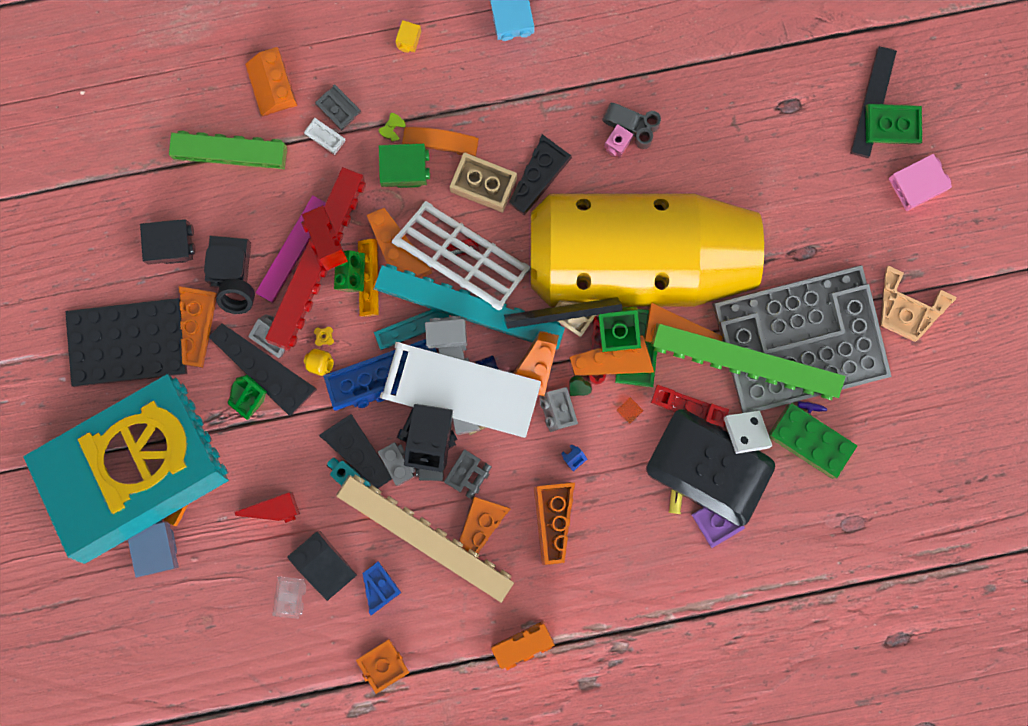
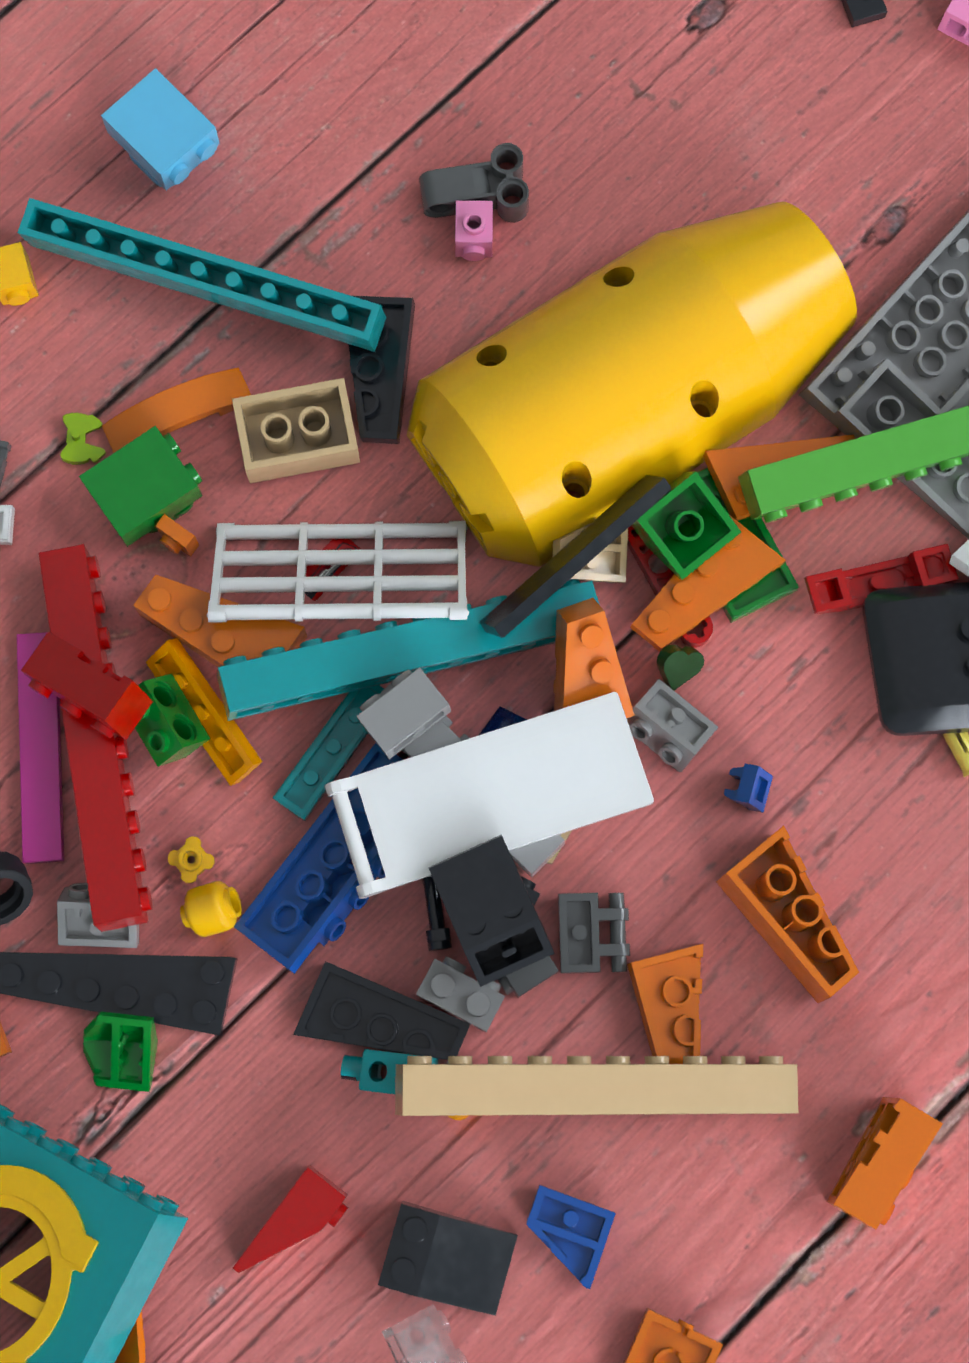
camera: 40 degrees left, 5 degrees down
(403, 196) = (176, 537): none -> orange plate
(487, 89) = (203, 274): none -> teal brick
(630, 410) = (787, 651): clear orange tile -> none

